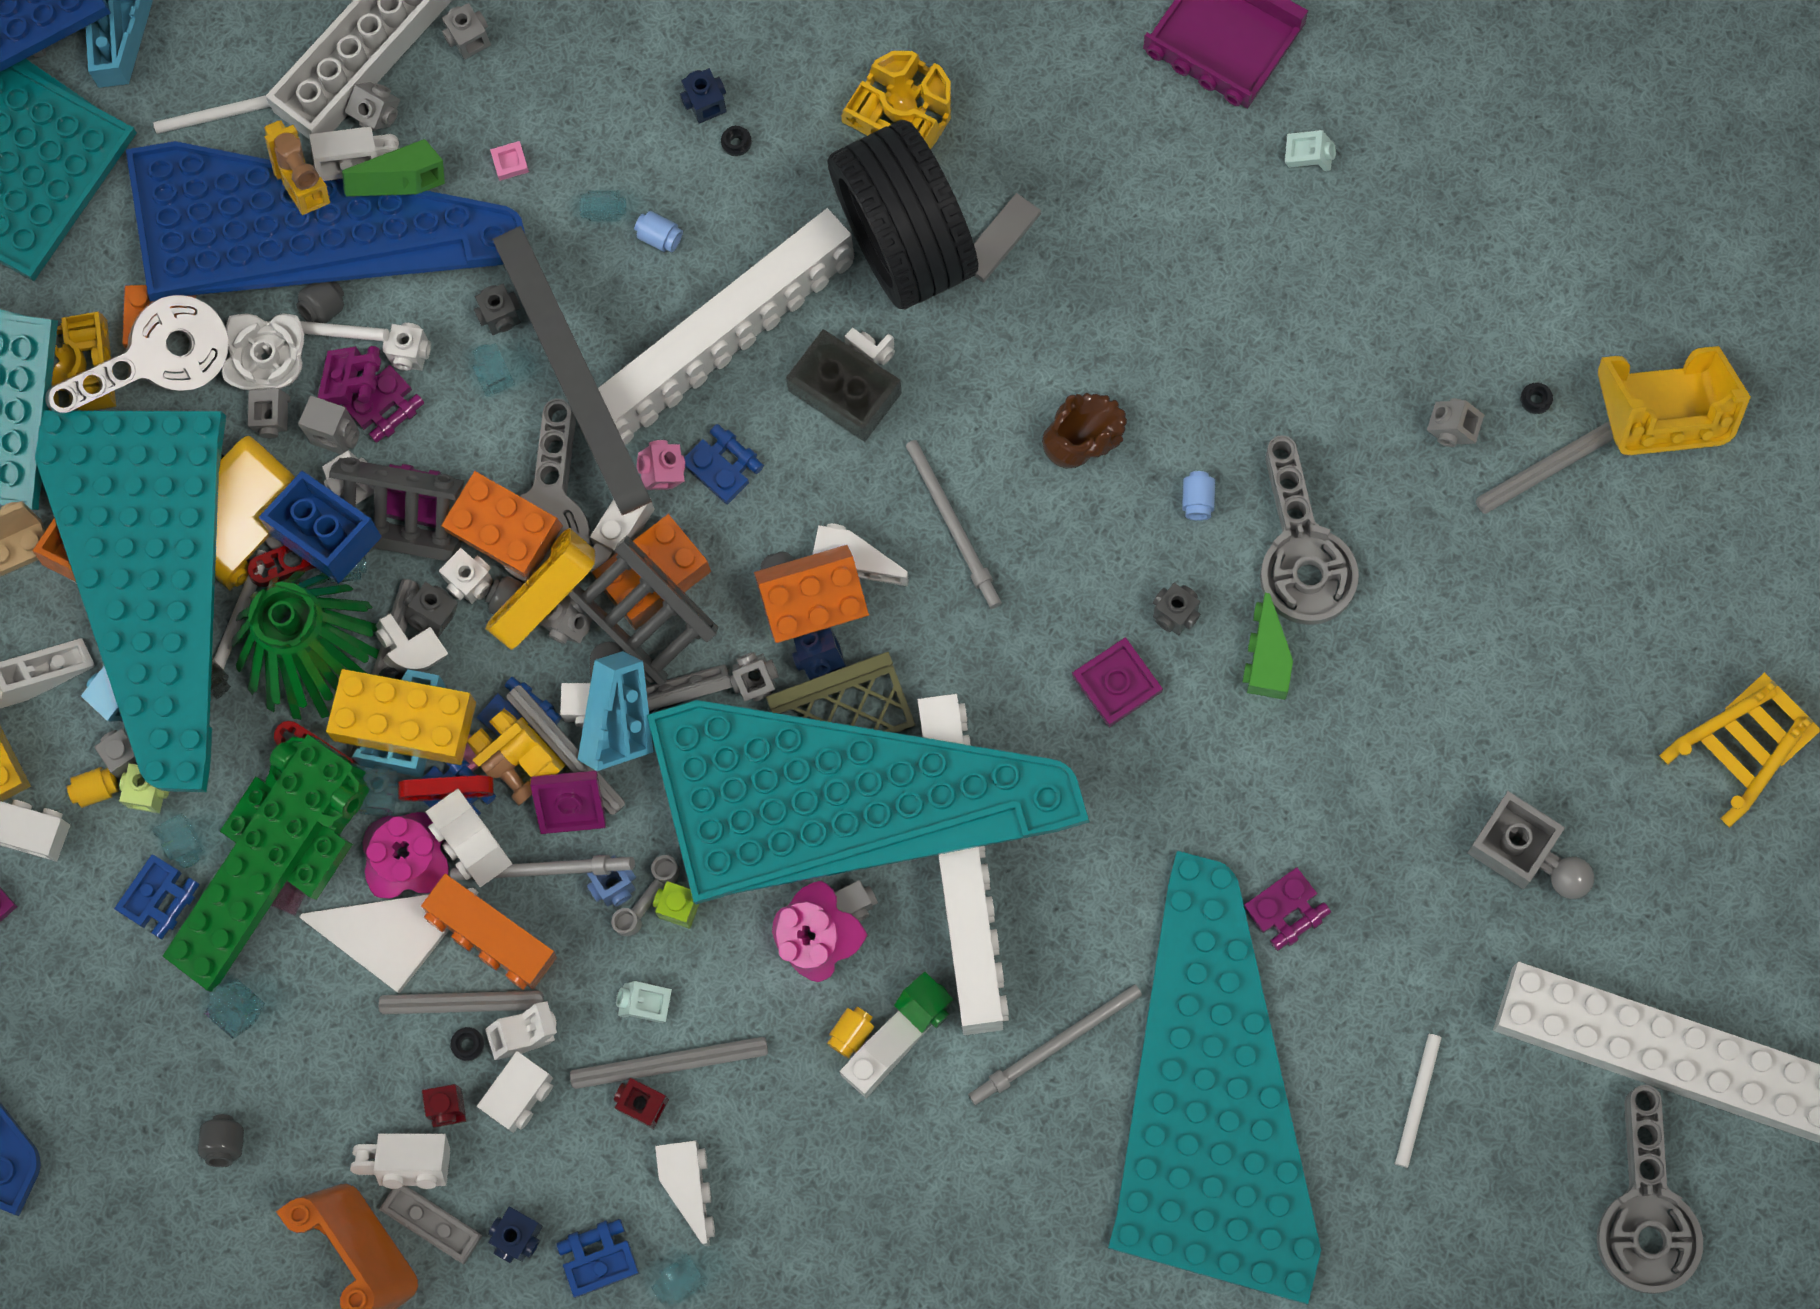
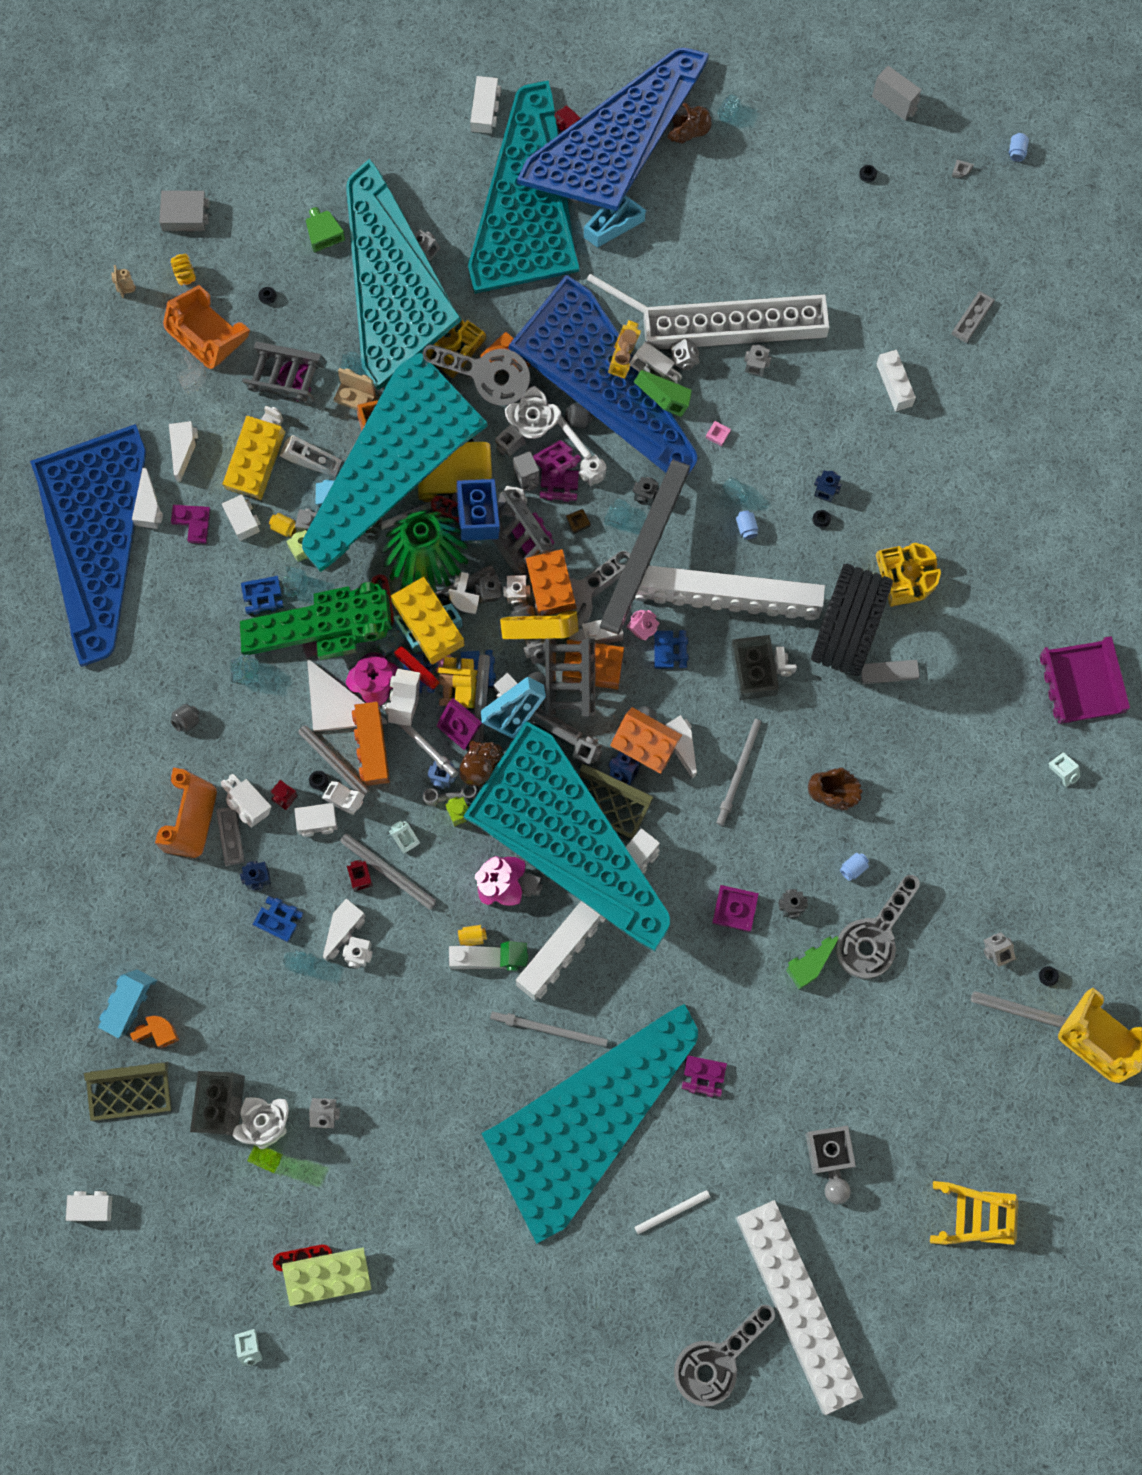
camera: 40 degrees right, 0 degrees up
(452, 424) = (578, 521): none -> dark brown plate
(644, 820) = (480, 762): none -> reddish brown hair
(728, 1186) = (357, 945): none -> white brick

